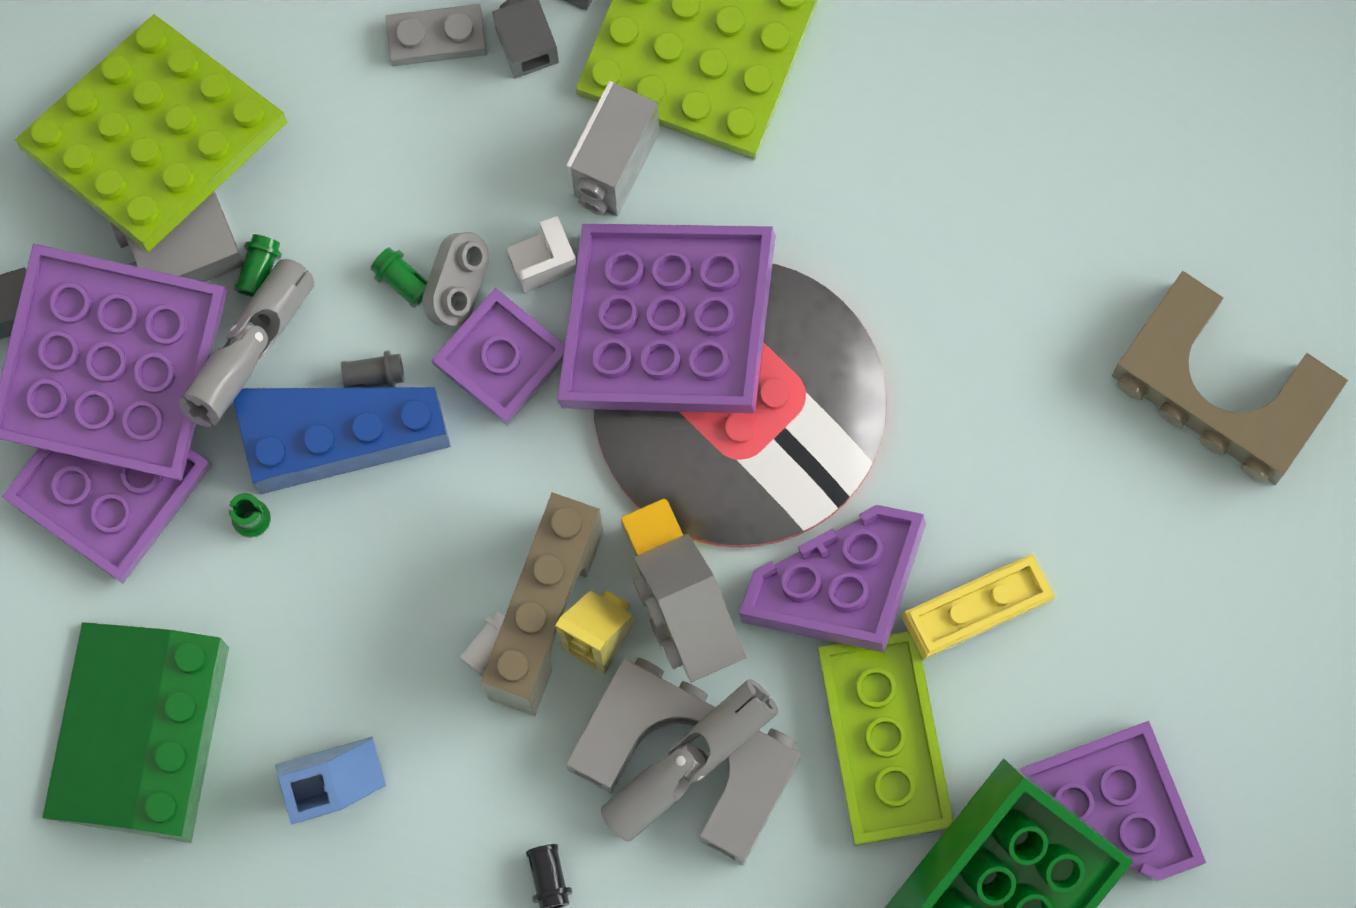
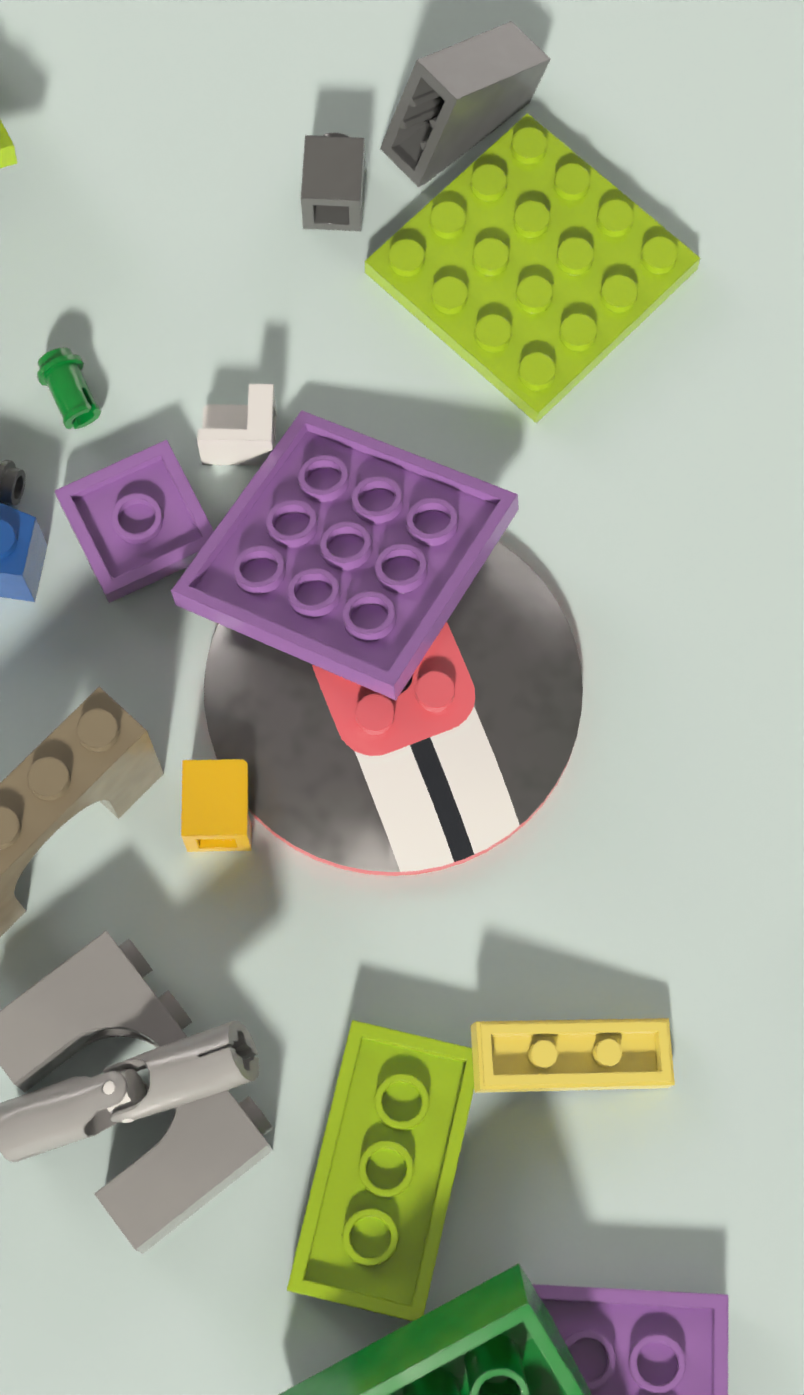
camera: 20 degrees right, 5 degrees down
(436, 35) = (236, 146): light grey plate -> none
(455, 276) = (129, 410): light grey plate -> none
(595, 628) = (88, 877): light yellow slope -> none
(612, 149) = (371, 336): light grey piece -> none
(687, 609) = (205, 903): light grey brick -> none
(840, 582) = (416, 953): medium lavender plate -> none

